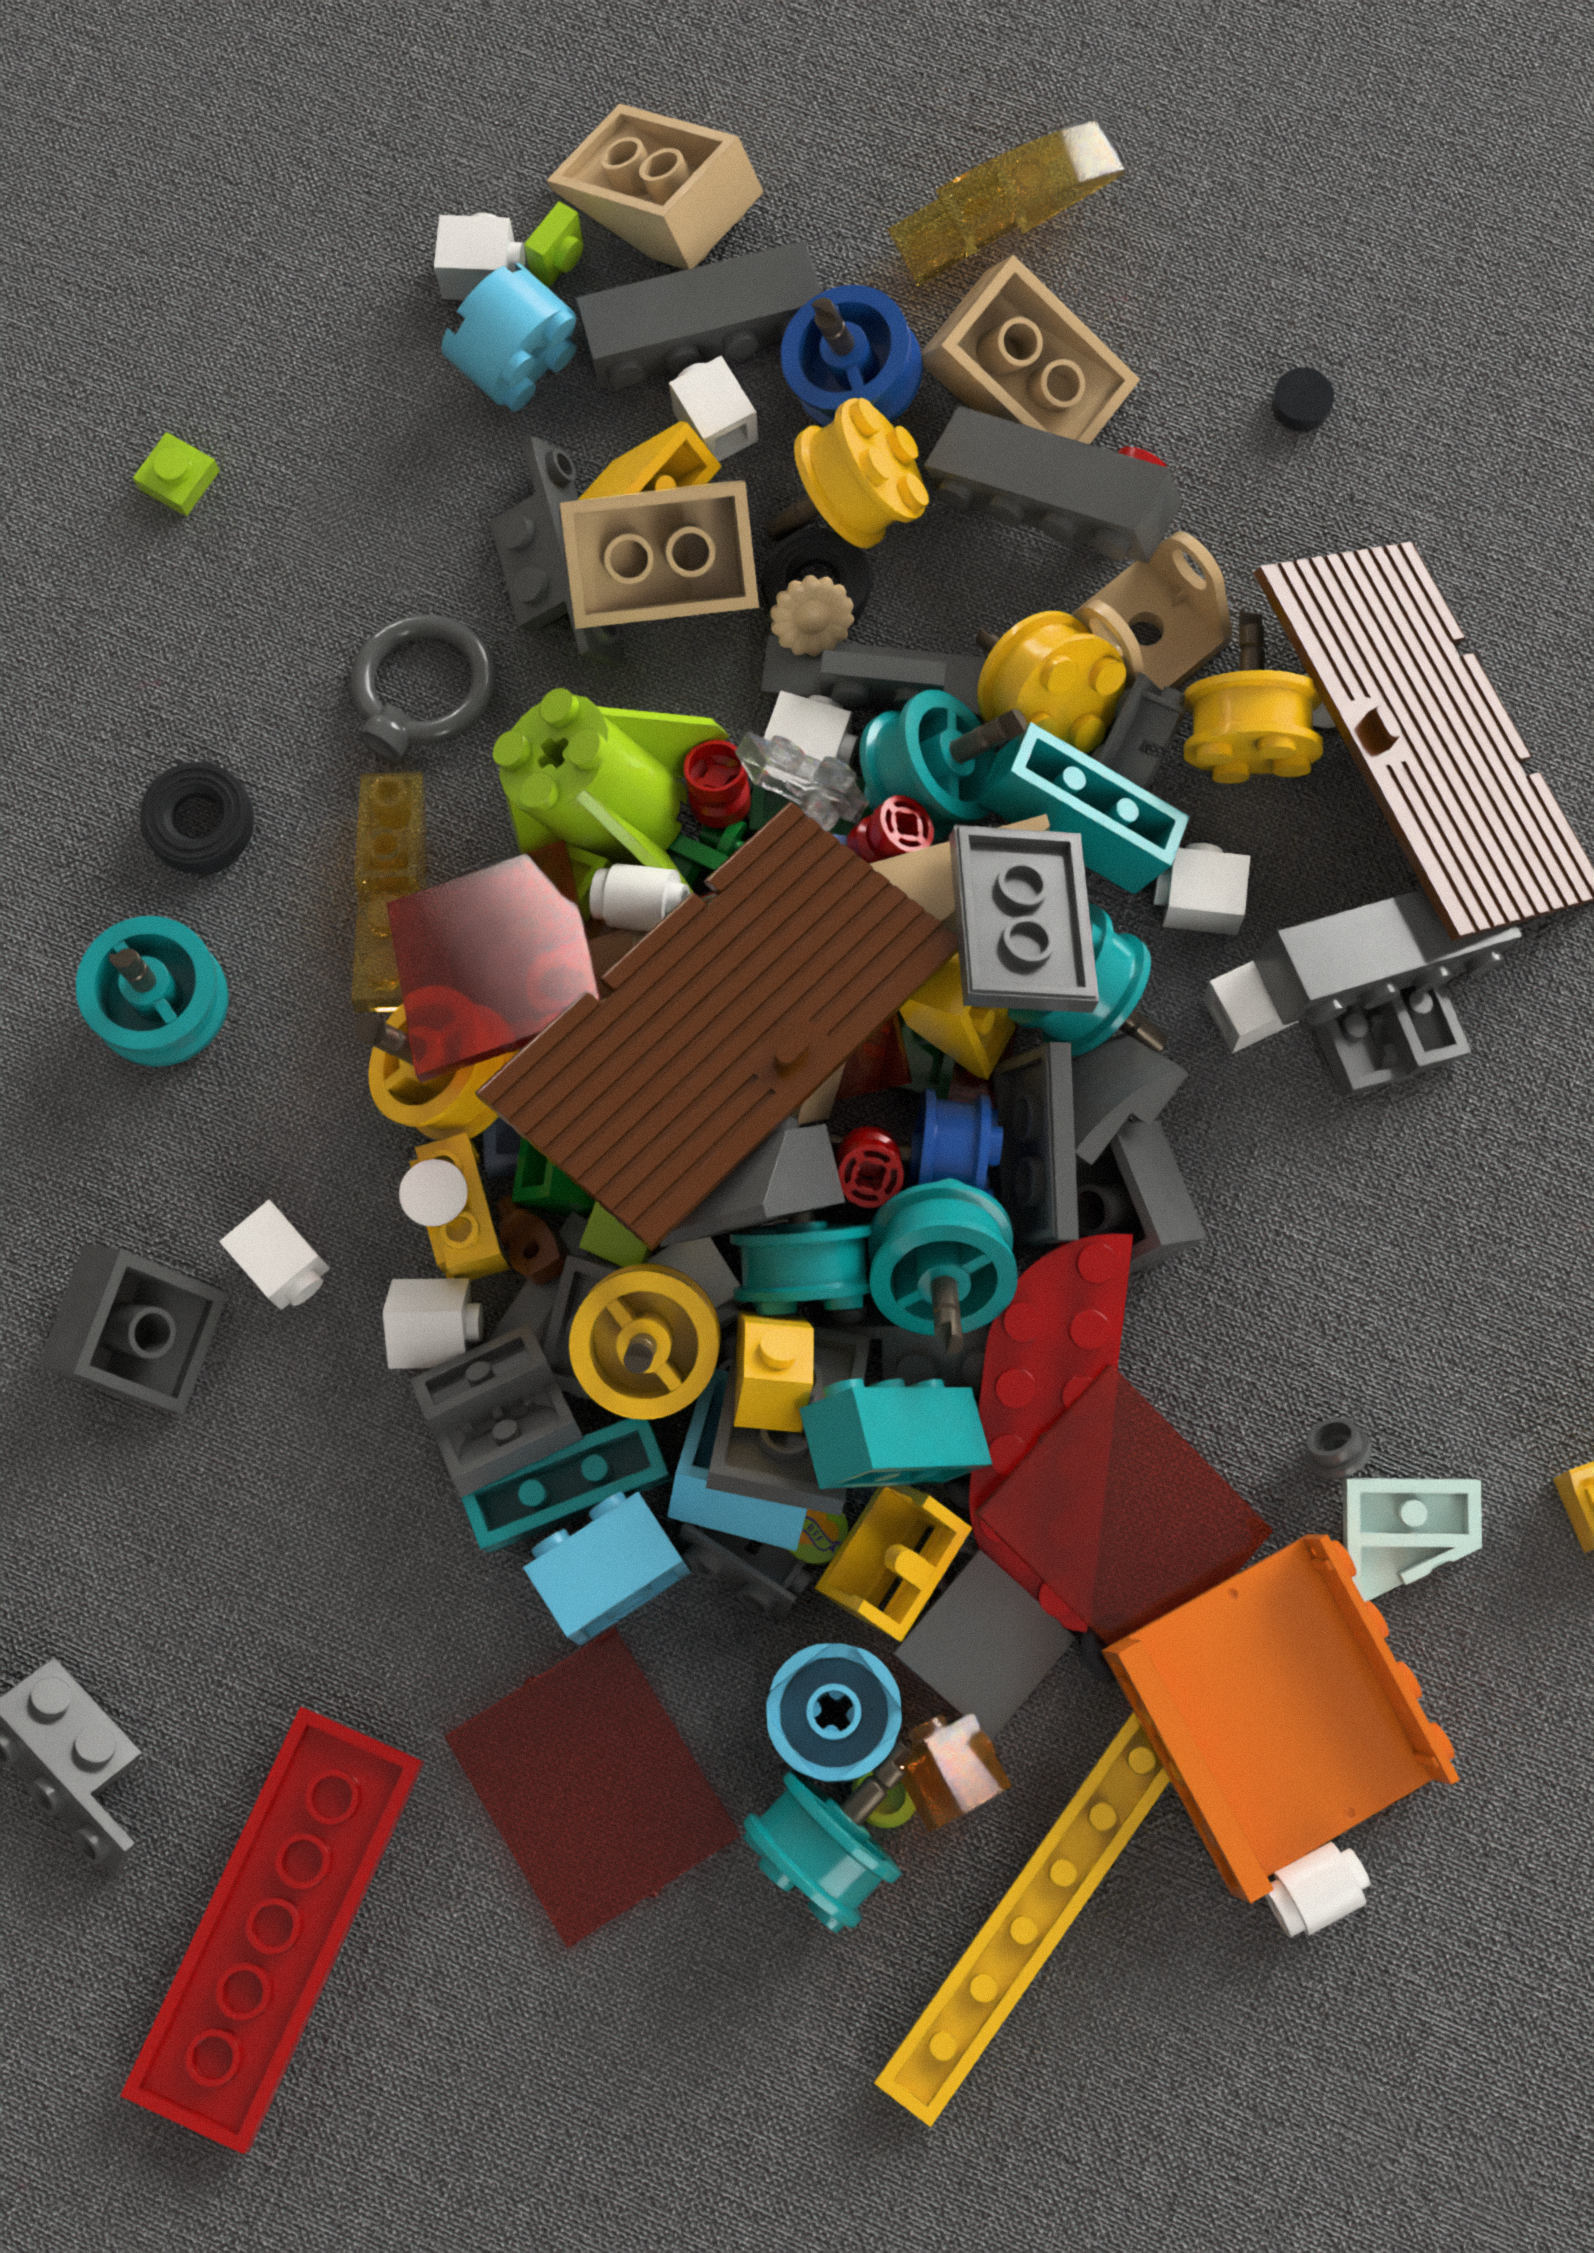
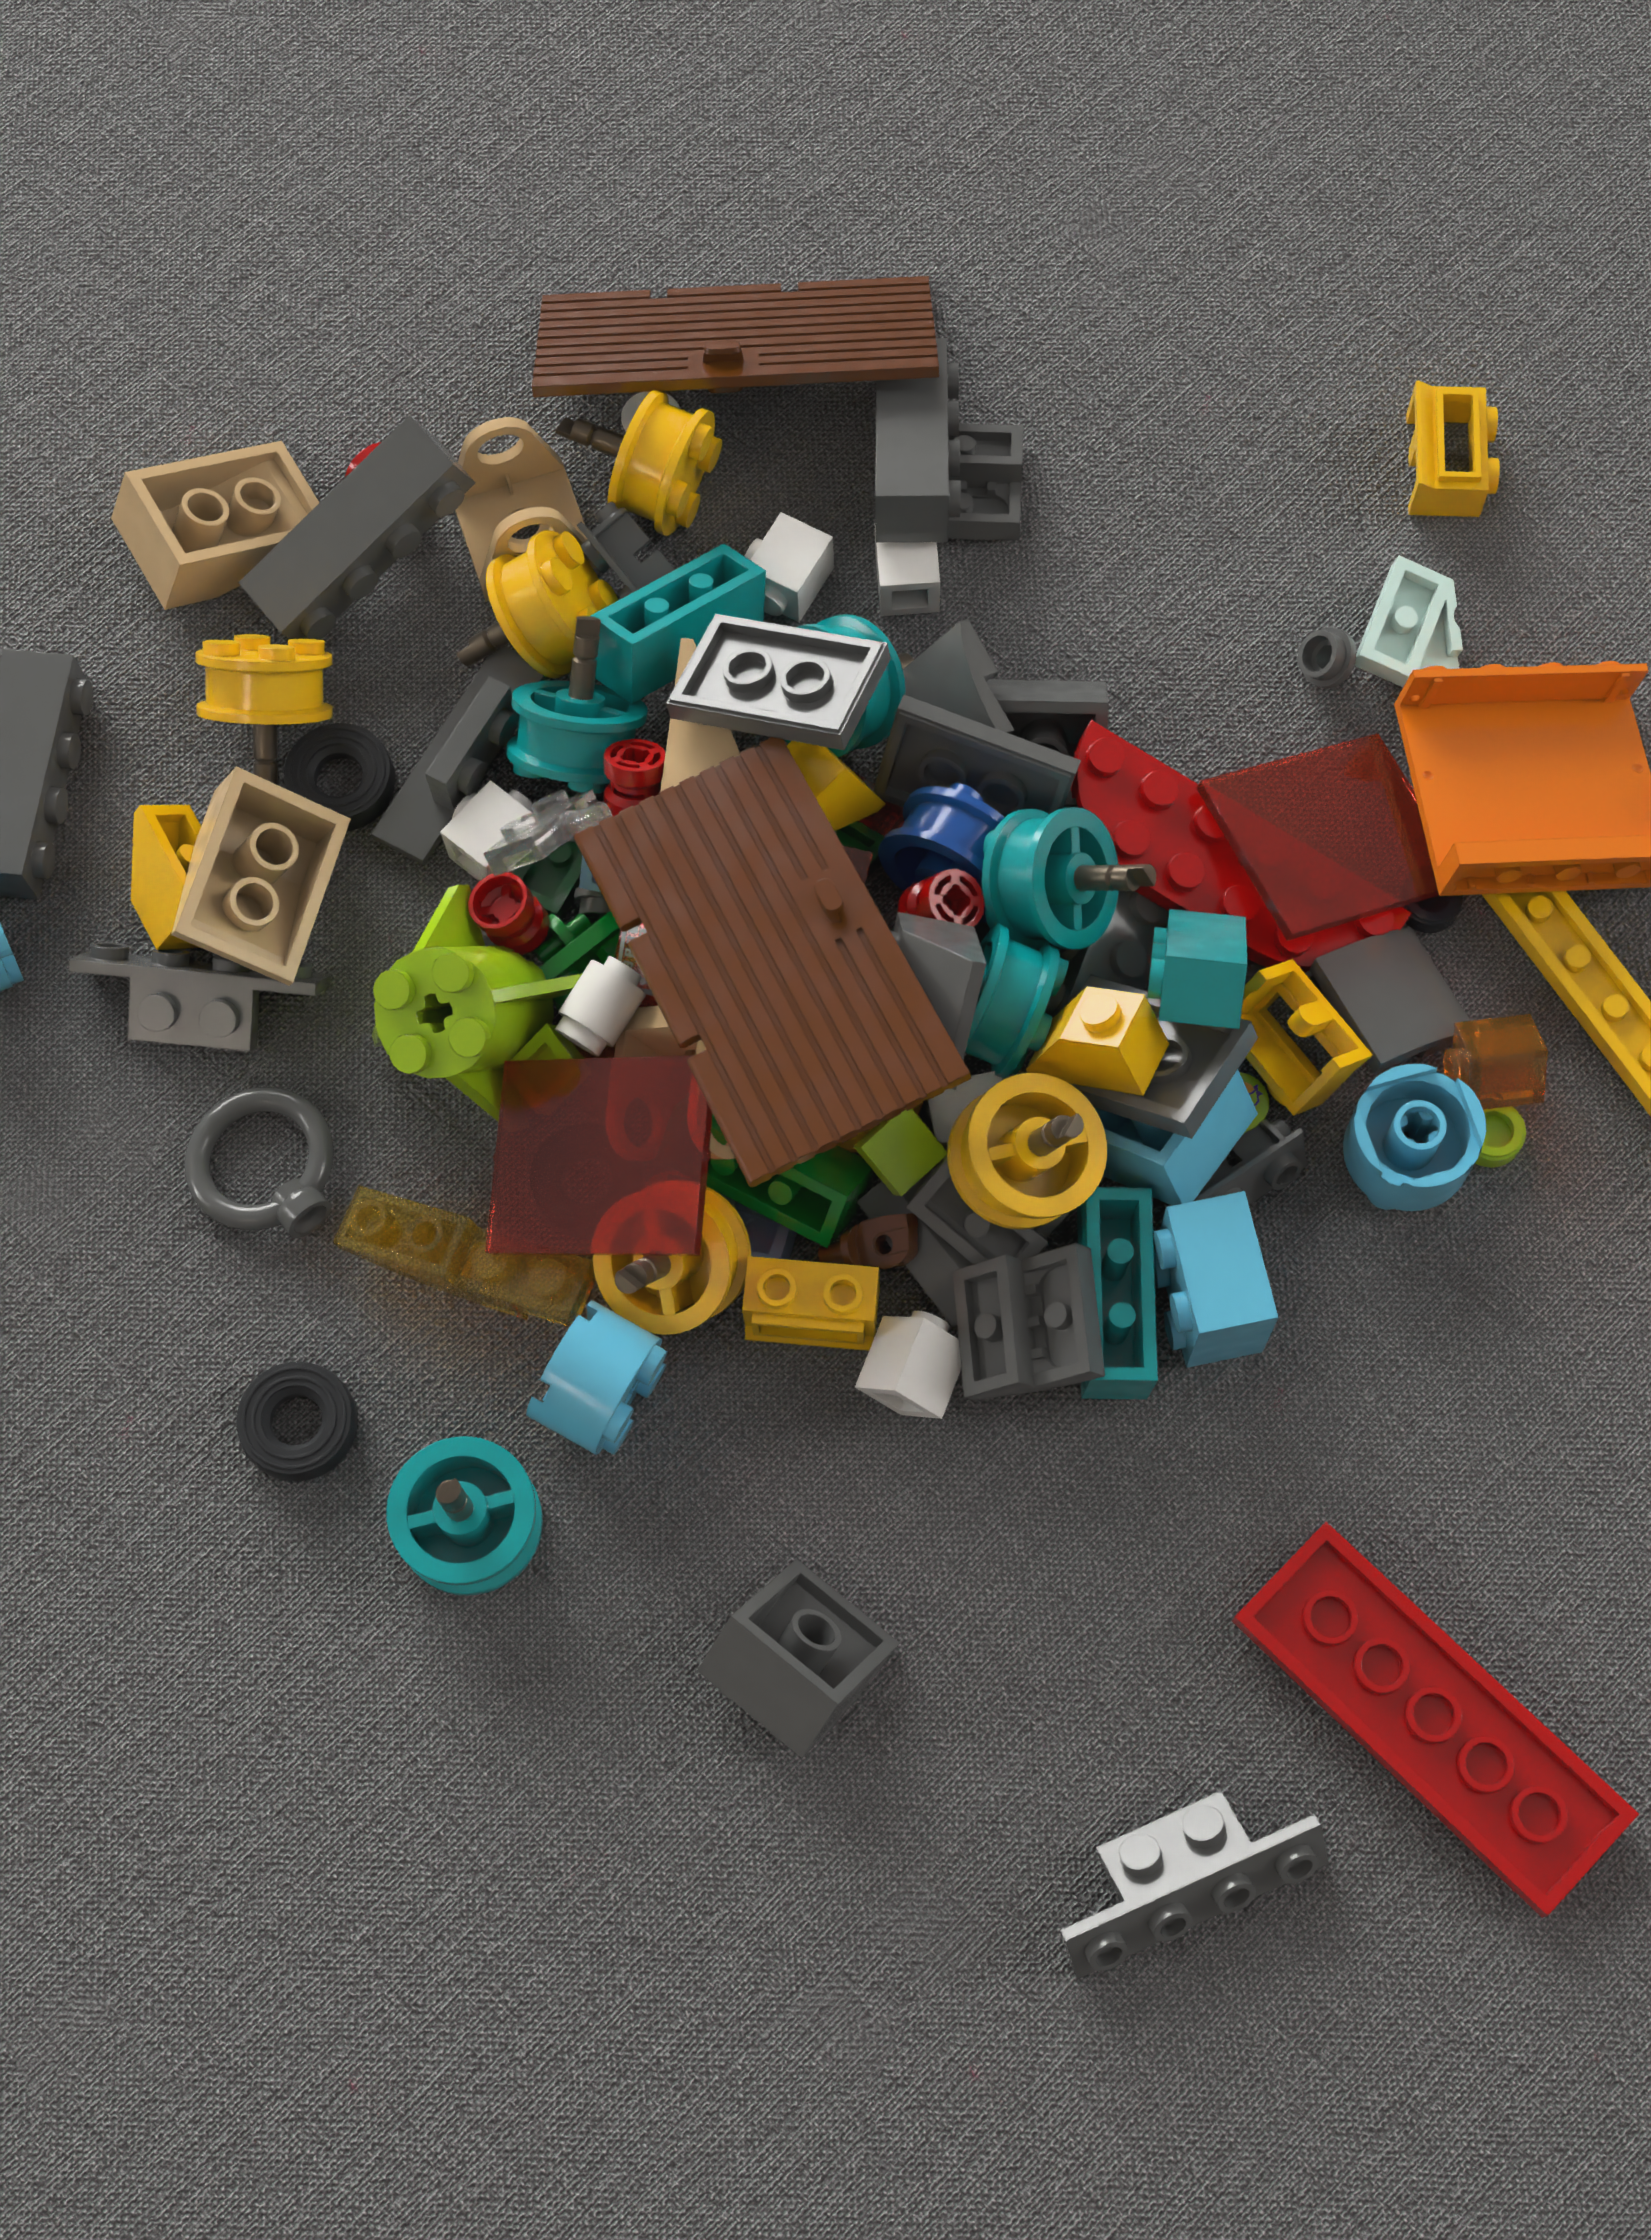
camera: 70 degrees left, 5 degrees down
(276, 1256) = (785, 1490): white brick -> none
(306, 1048) = (596, 1378): none -> medium azure brick
(433, 1192) = (798, 1301): white sticker -> none
(592, 1787) = (1397, 1387): clear red piece -> none
(715, 407) = (114, 790): white brick -> none
(812, 615) = (379, 779): tan piece -> none
(823, 1845) = (1530, 1182): teal wheel -> none
(850, 347) = (138, 654): blue wheel -> none
(1004, 194) = (50, 479): clear yellow slope -> none
(1303, 399) = (368, 323): black tile -> none

